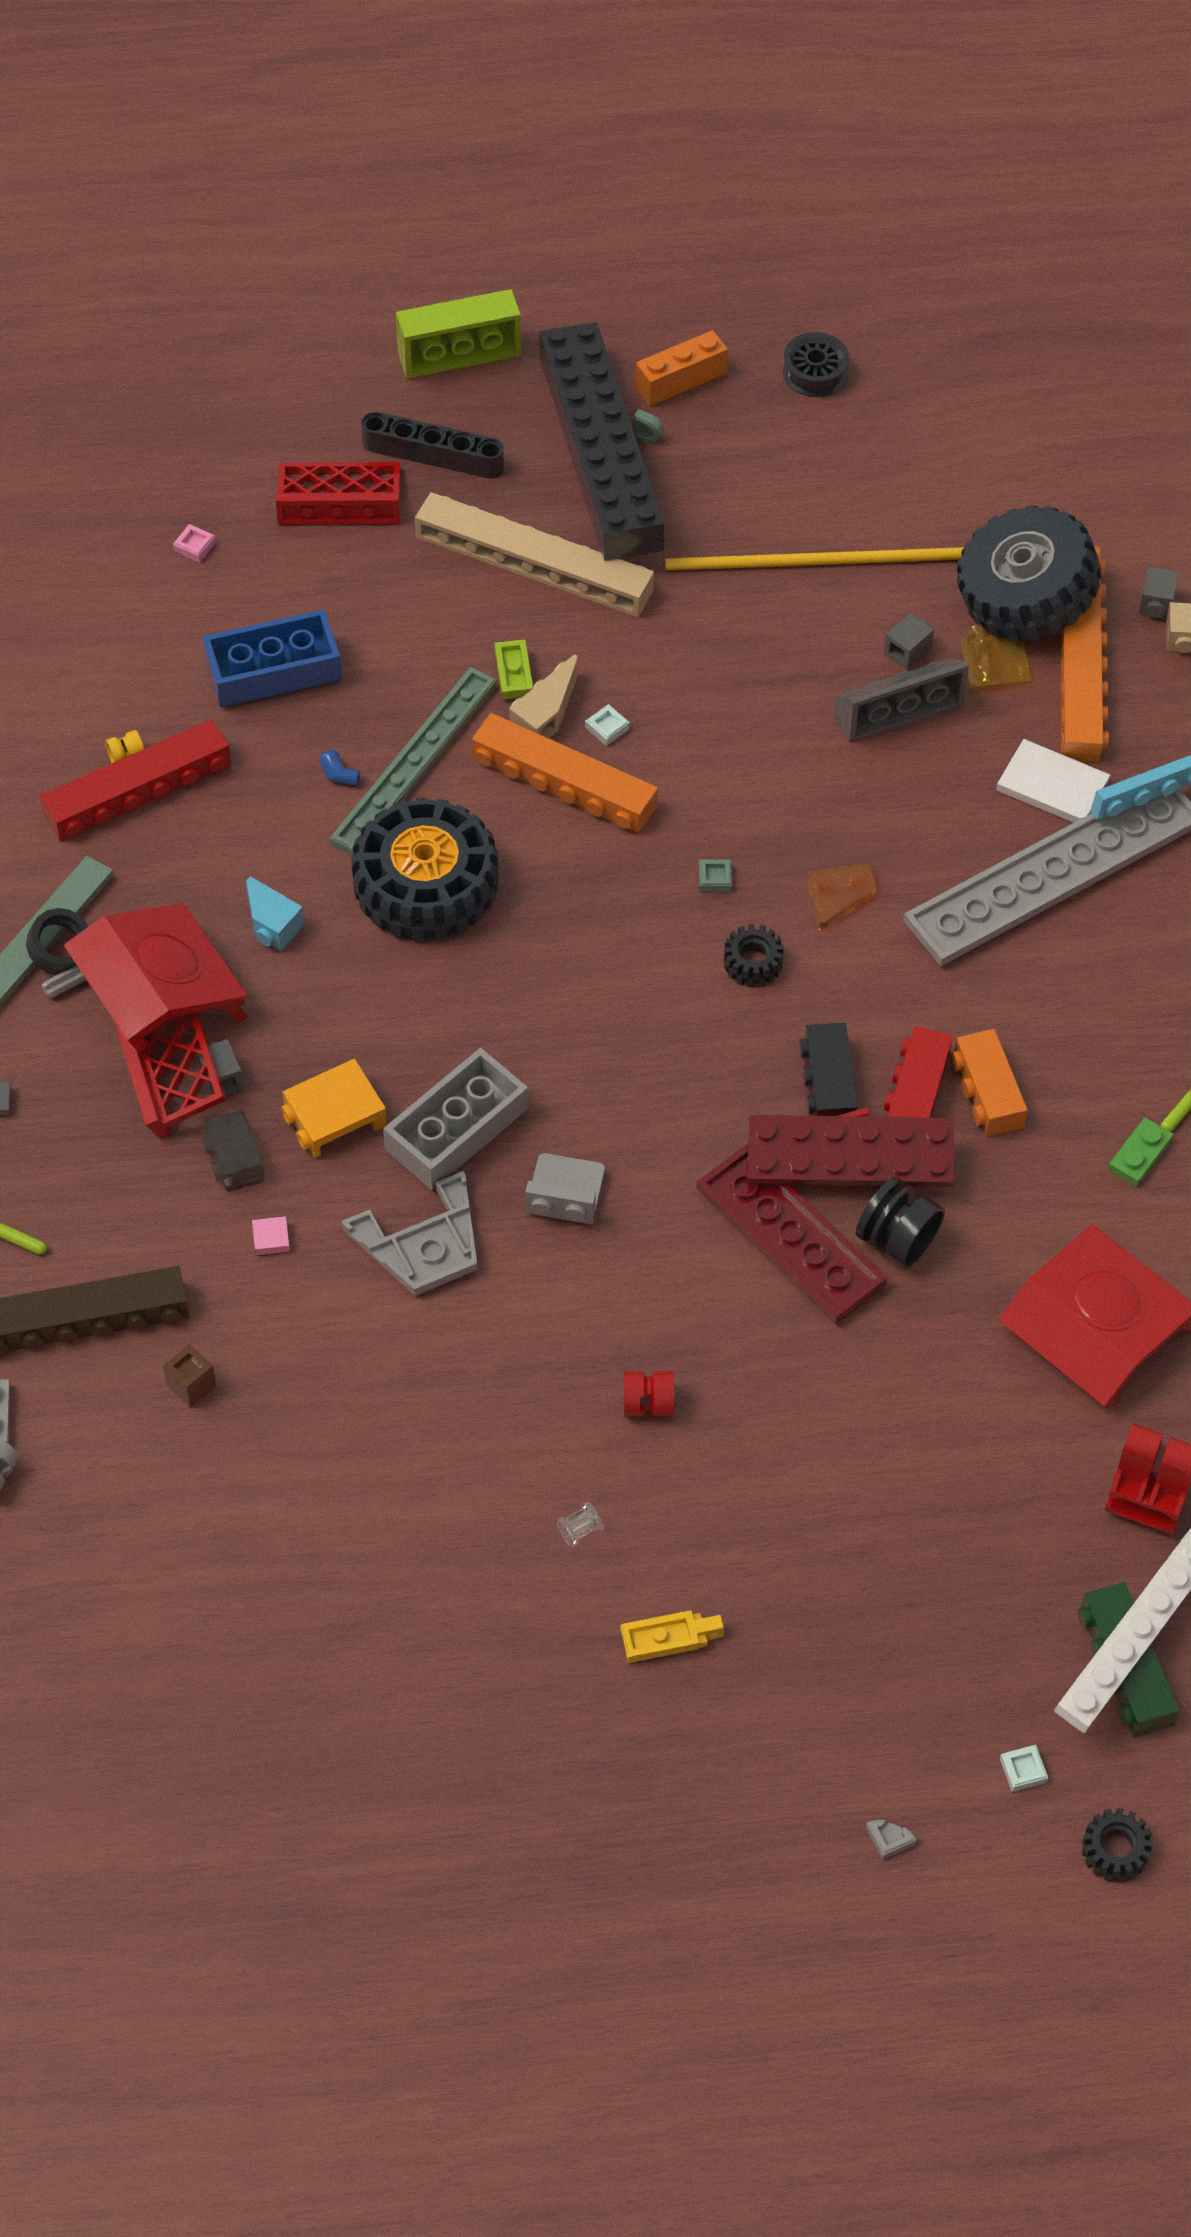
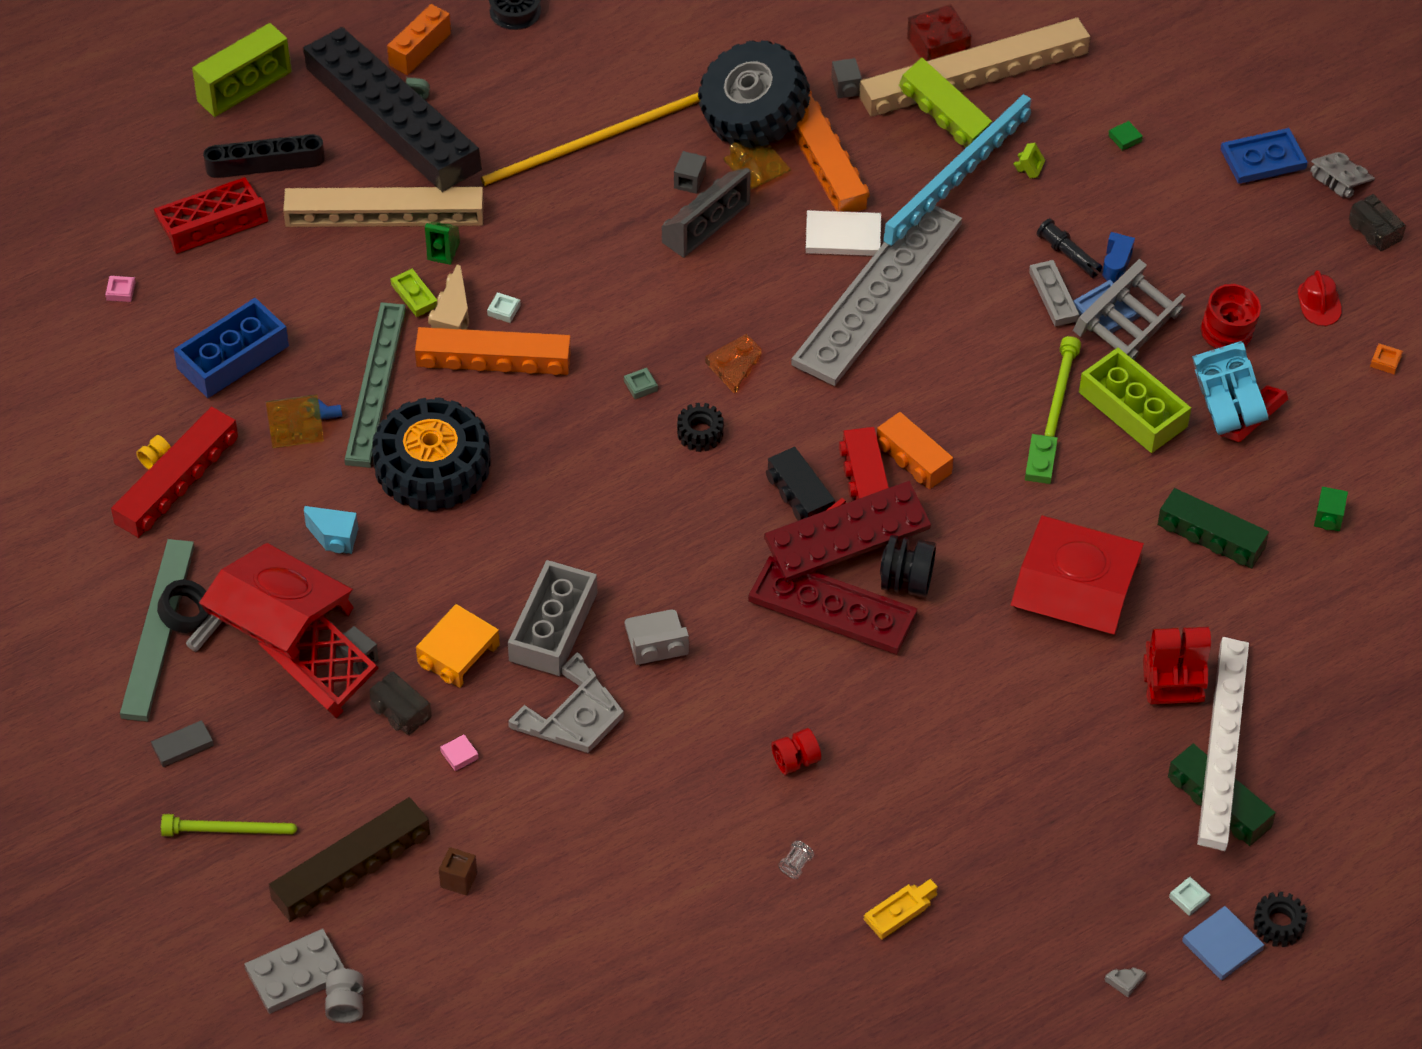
camera: 25 degrees left, 5 degrees down
(294, 771) = (294, 421): none -> clear yellow hinge
(575, 619) = (441, 242): none -> green slope
(1032, 1844) = (1223, 943): none -> medium blue tile

